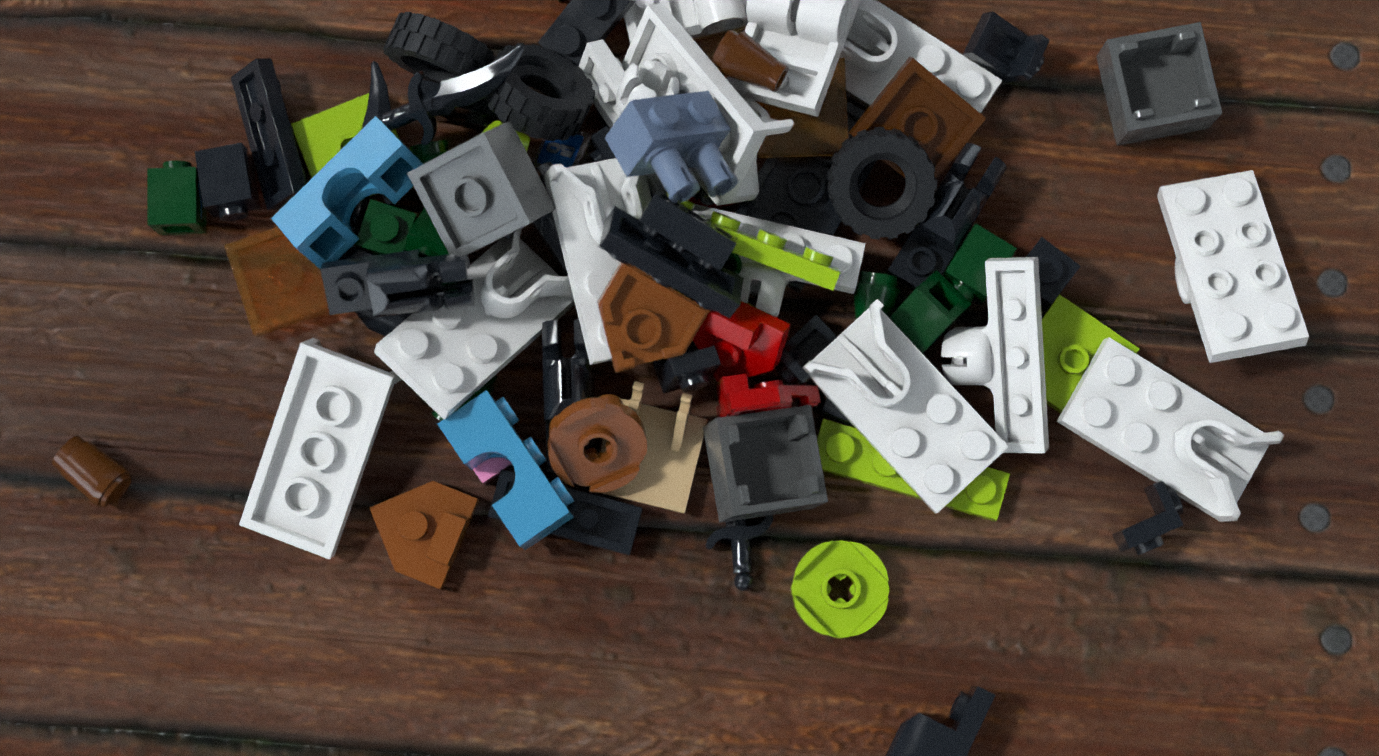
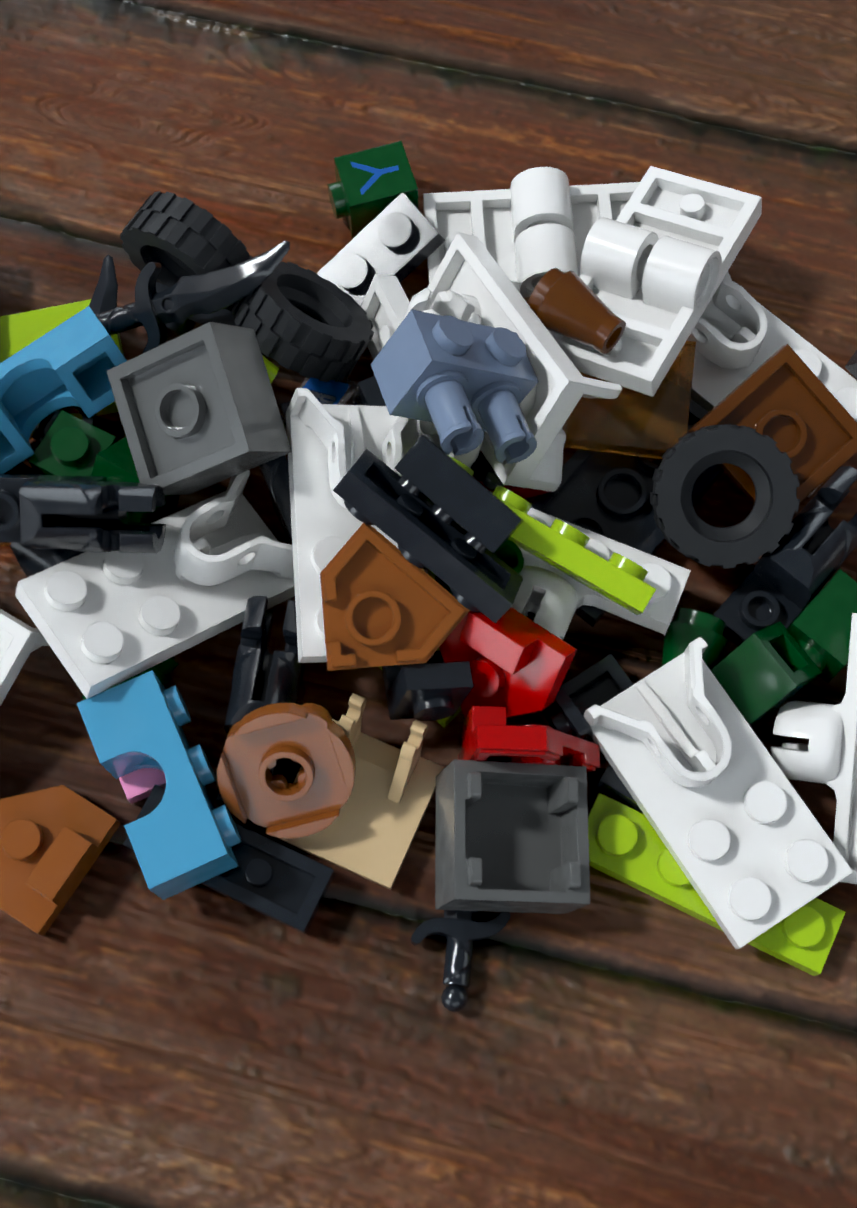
camera: 10 degrees right, 10 degrees down
(838, 617) = (627, 1040): lime plate -> none

